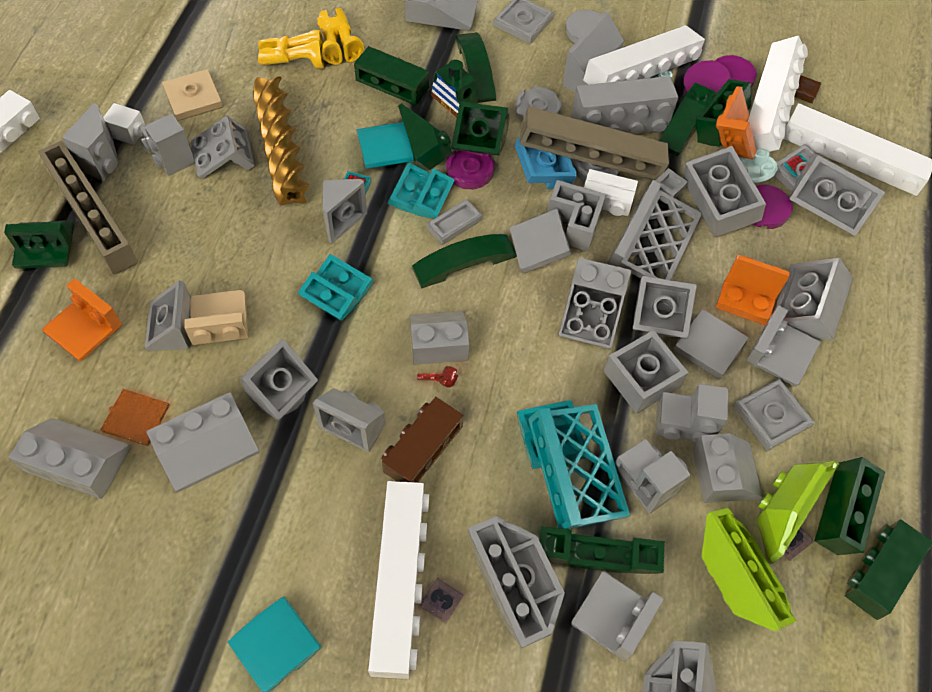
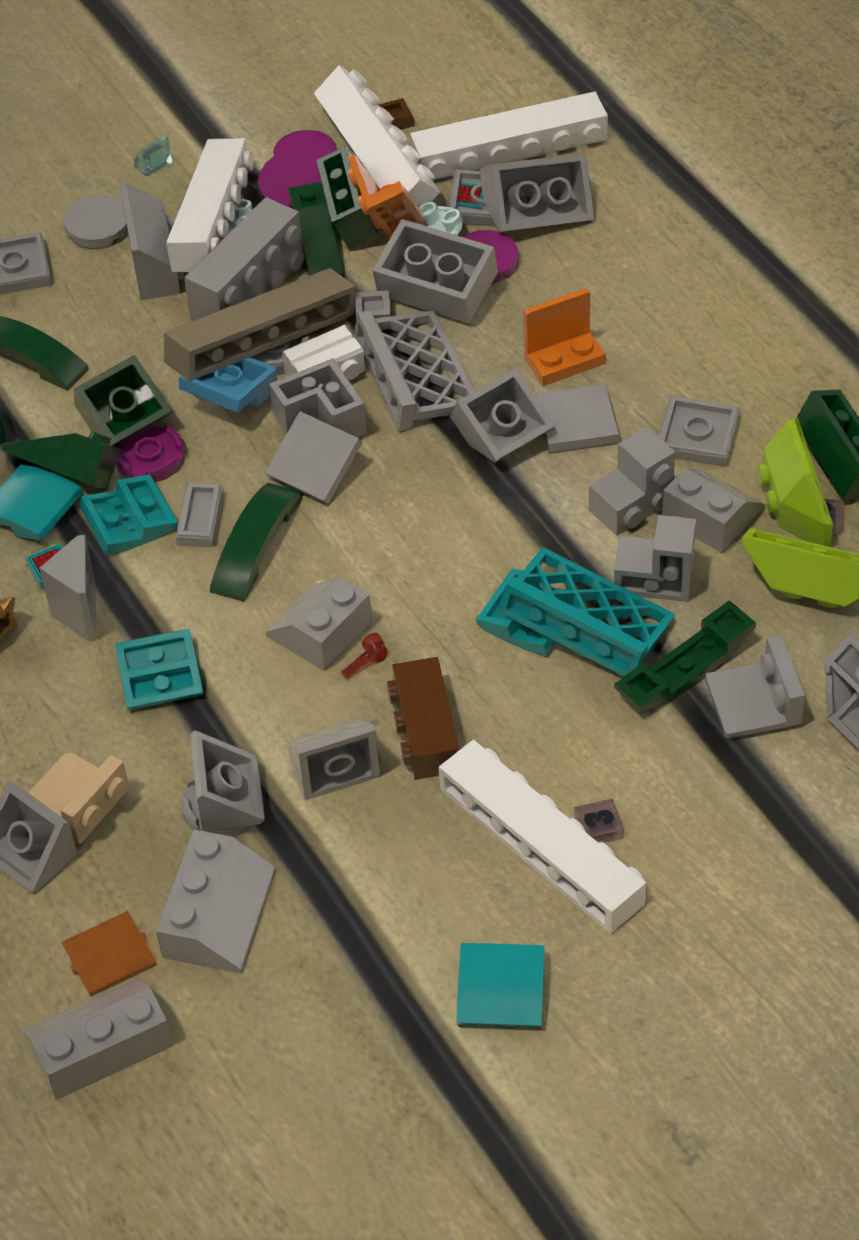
camera: 40 degrees left, 10 degrees down
(454, 85) = (42, 386): torso -> none
(518, 578) = (644, 738): light grey wedge -> none
(538, 98) = (141, 336): light grey tile -> none
(594, 303) = (431, 467): light grey slope -> none
(645, 371) = (551, 485): light grey brick -> none
(652, 15) = (153, 156): none -> clear light blue slope
(783, 349) = (644, 368): light grey bracket -> none
(815, 296) = (624, 304): light grey slope -> none

